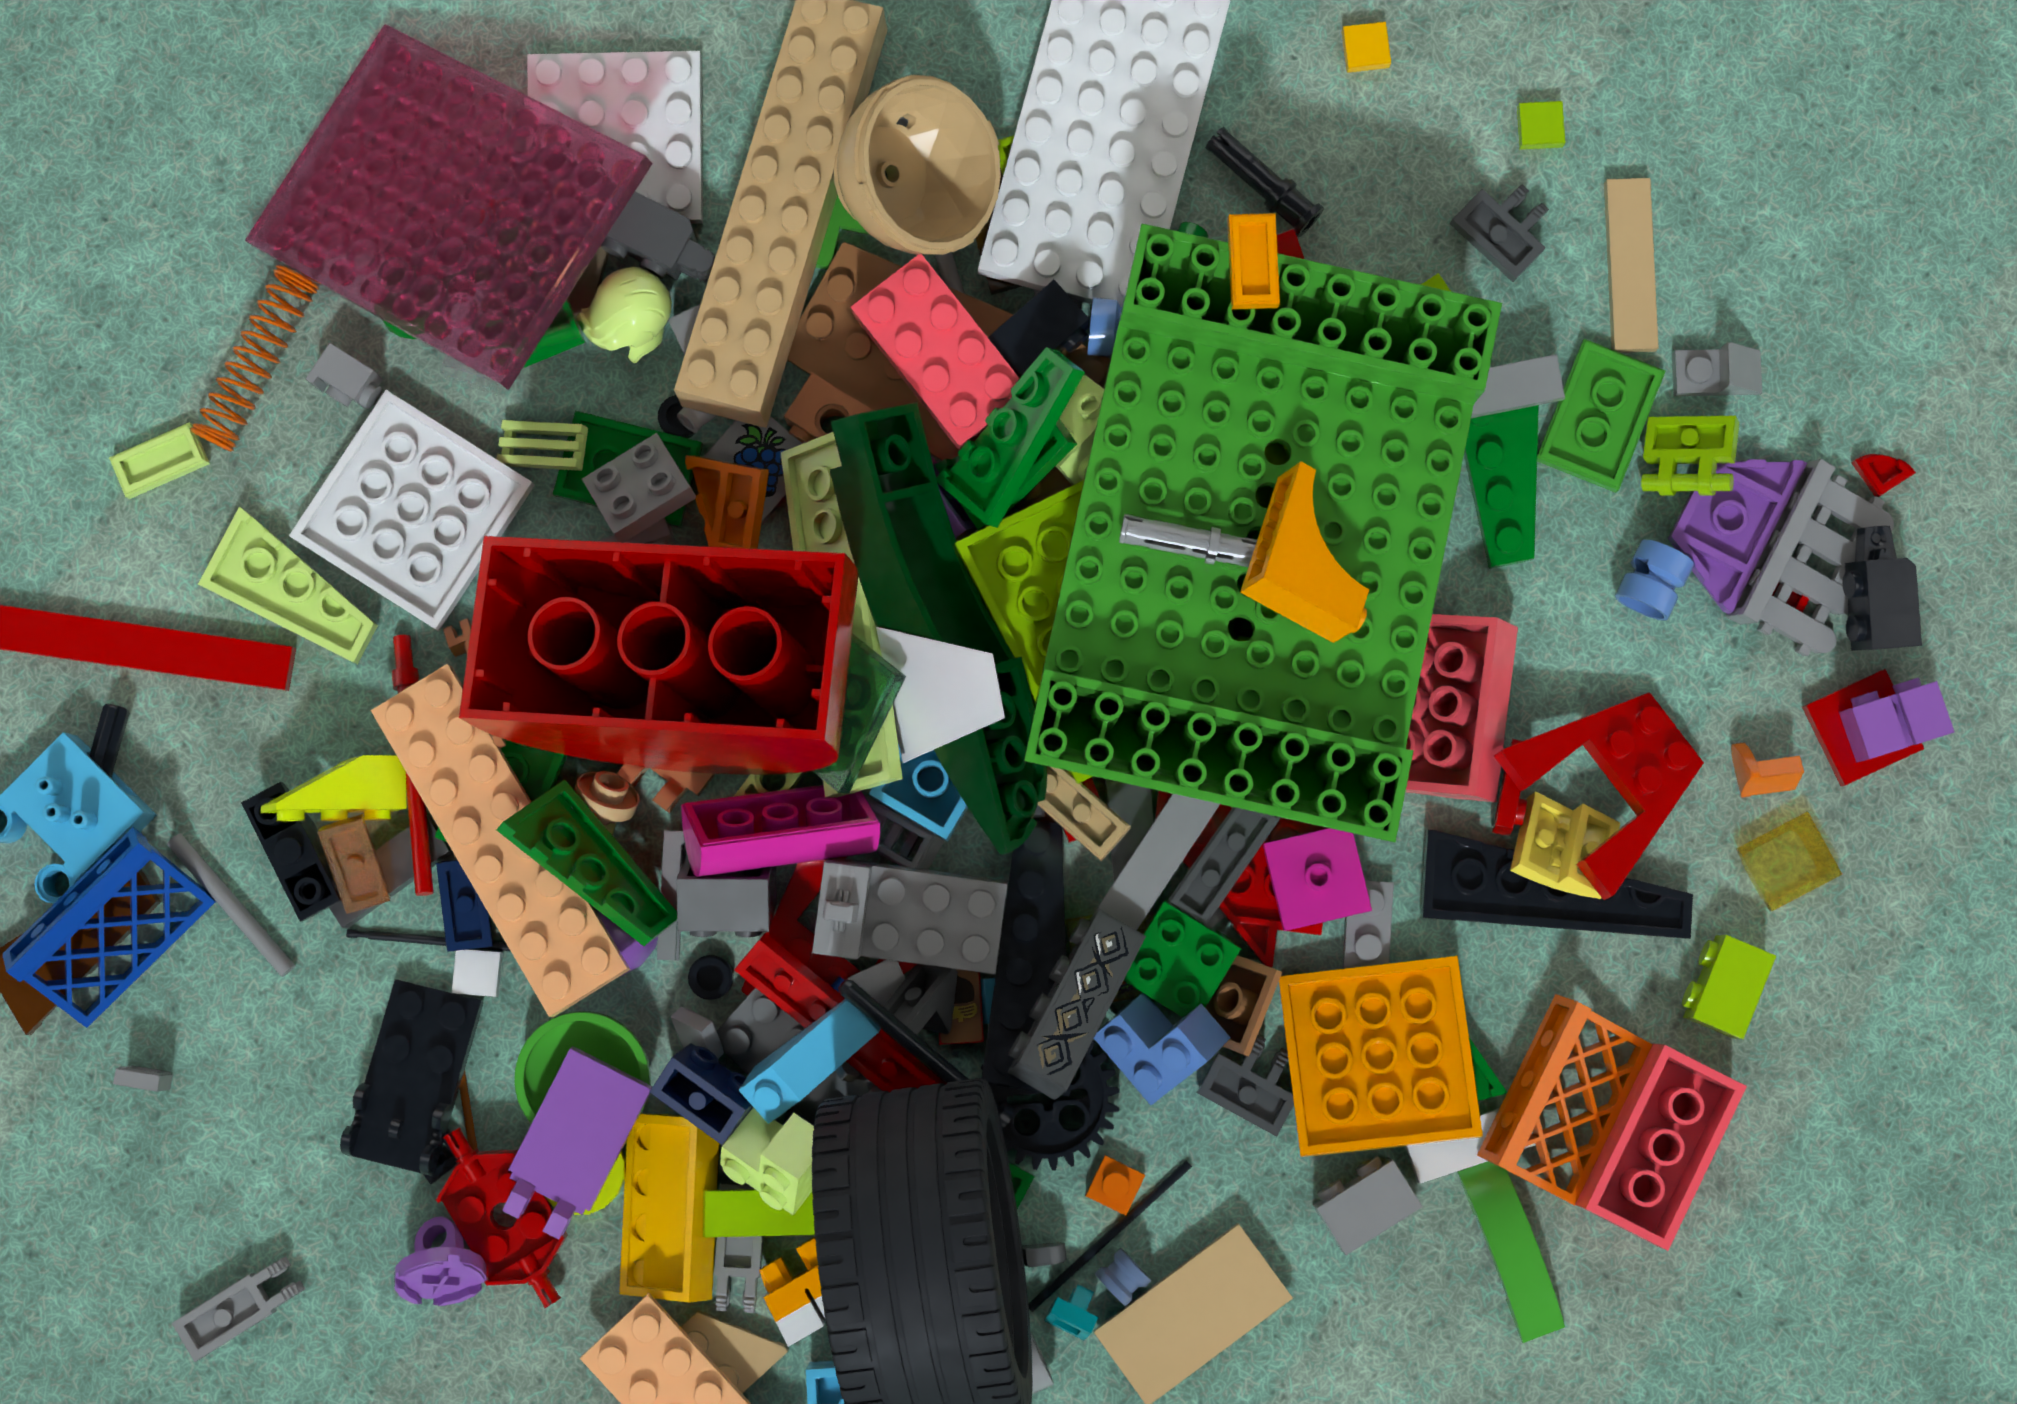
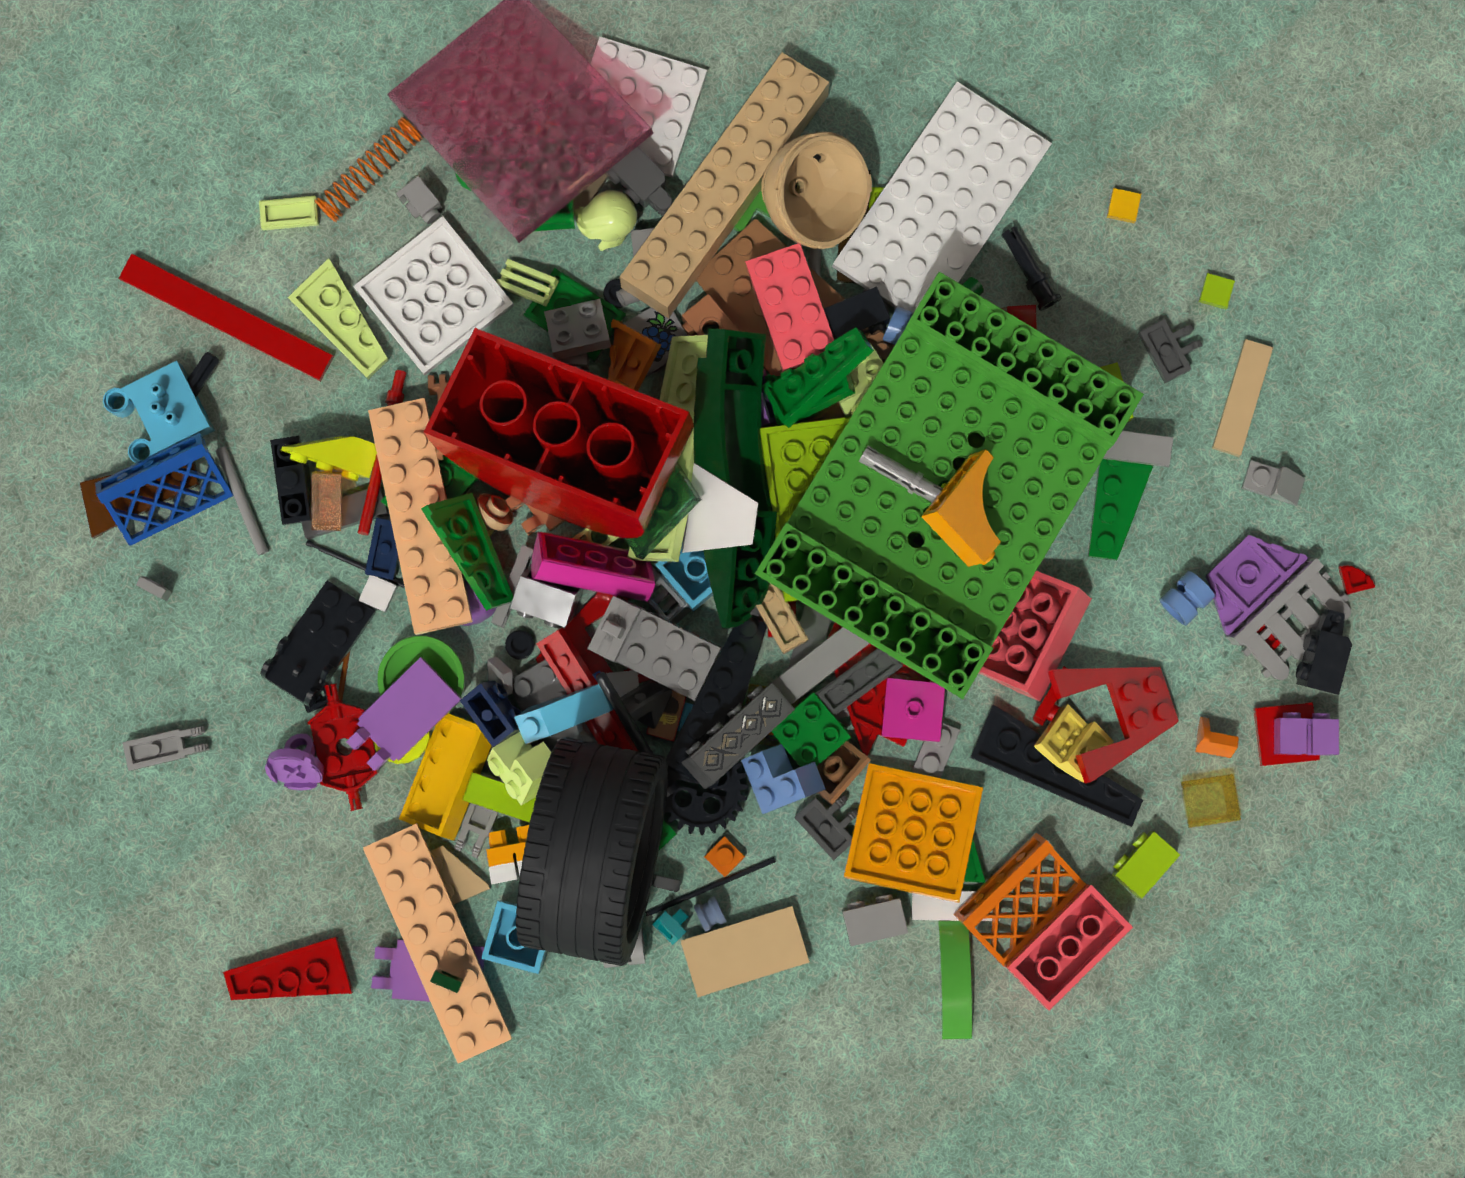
camera: 20 degrees right, 0 degrees up
(1253, 261) = (998, 317): light orange tile -> none
(1601, 415) = (1190, 485): bright green tile -> none
(1690, 441) = (1238, 519): lime plate -> none

